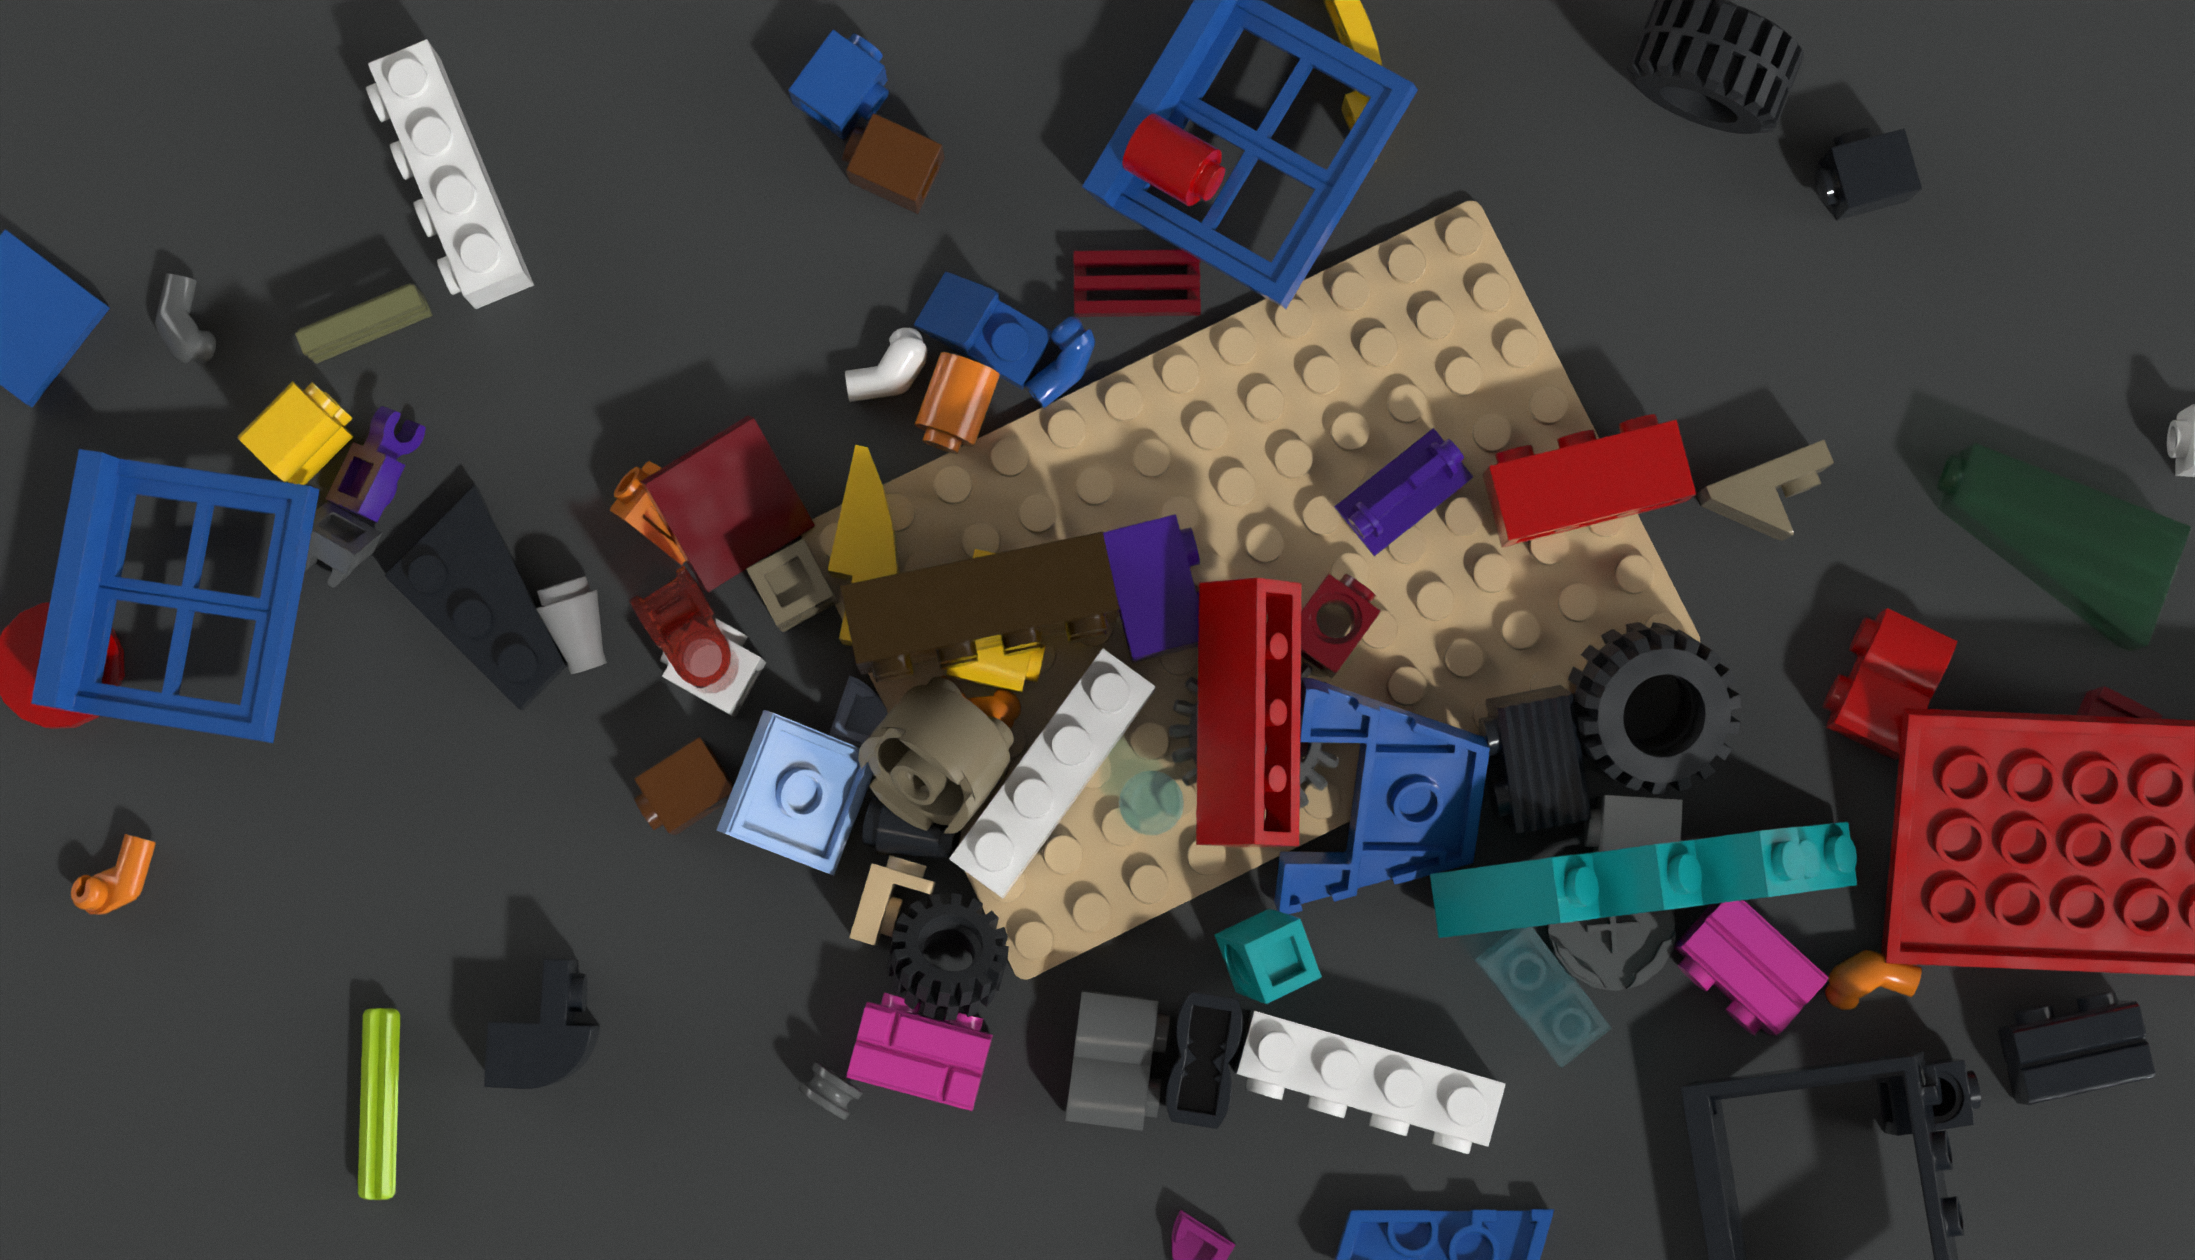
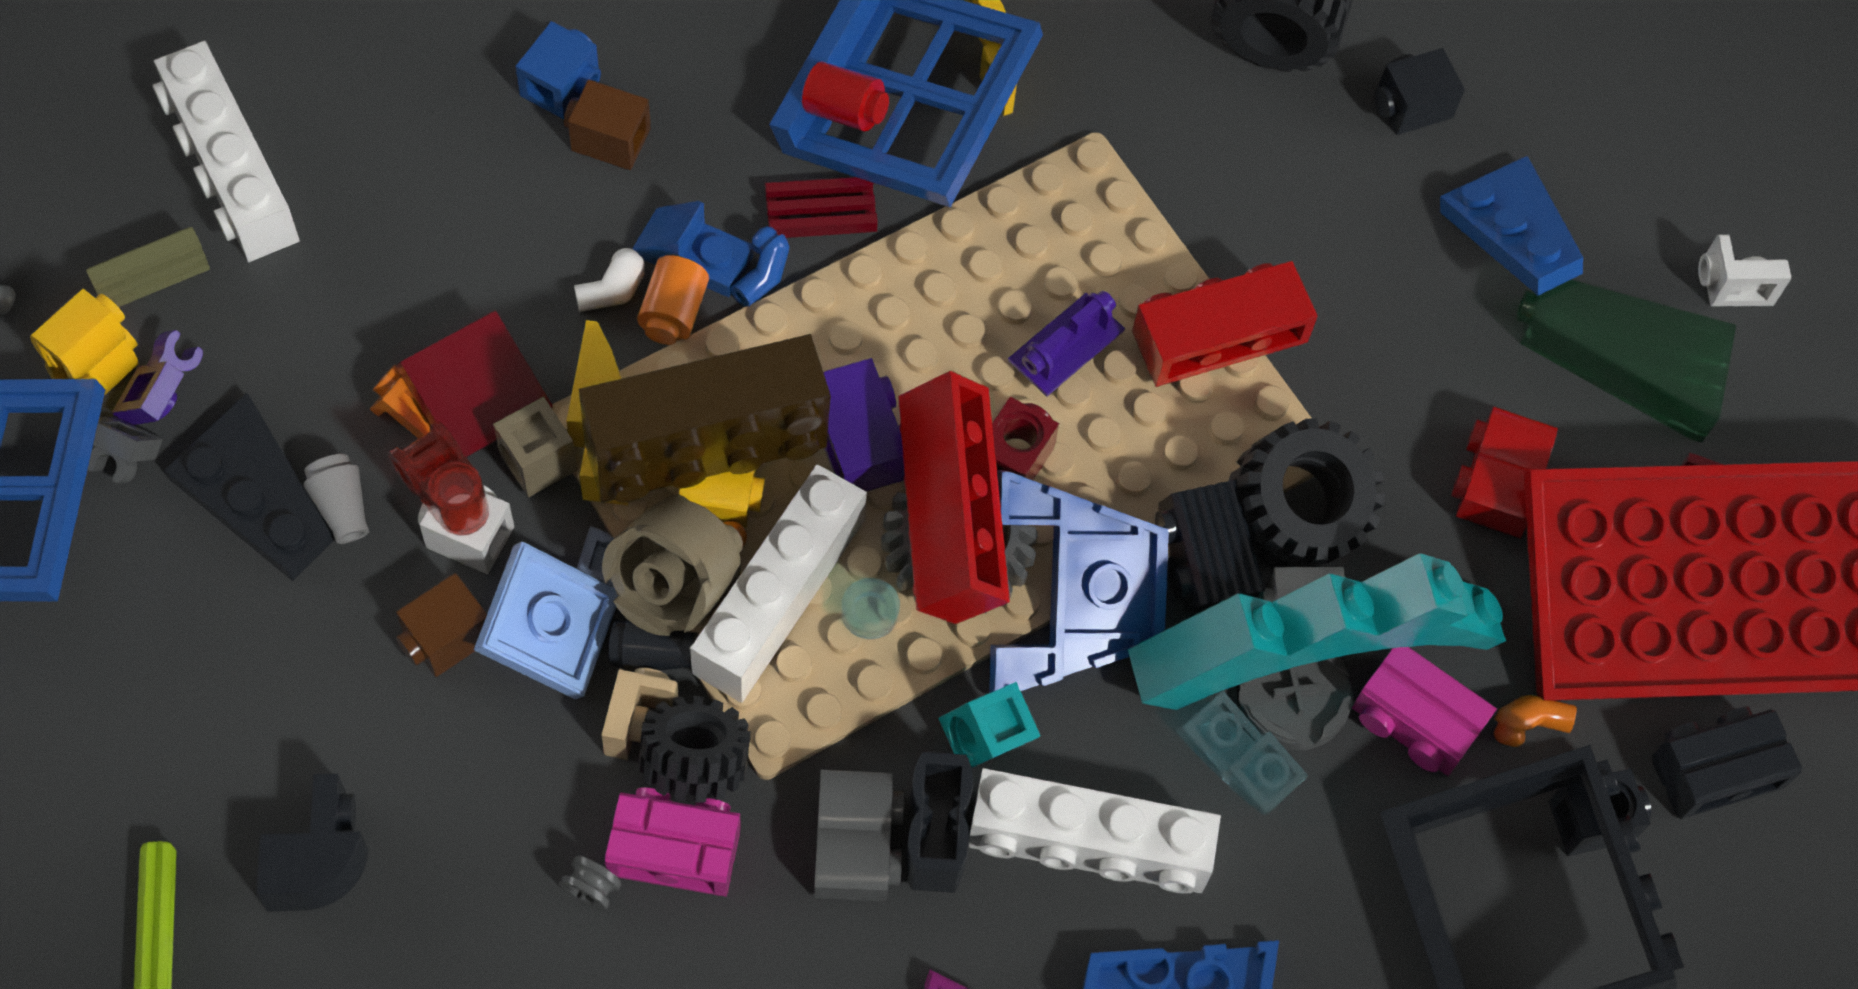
camera: 10 degrees left, 20 degrees down
(1753, 496) = (1370, 329): dark tan slope -> none
(1956, 370) = (1516, 225): none -> blue wing

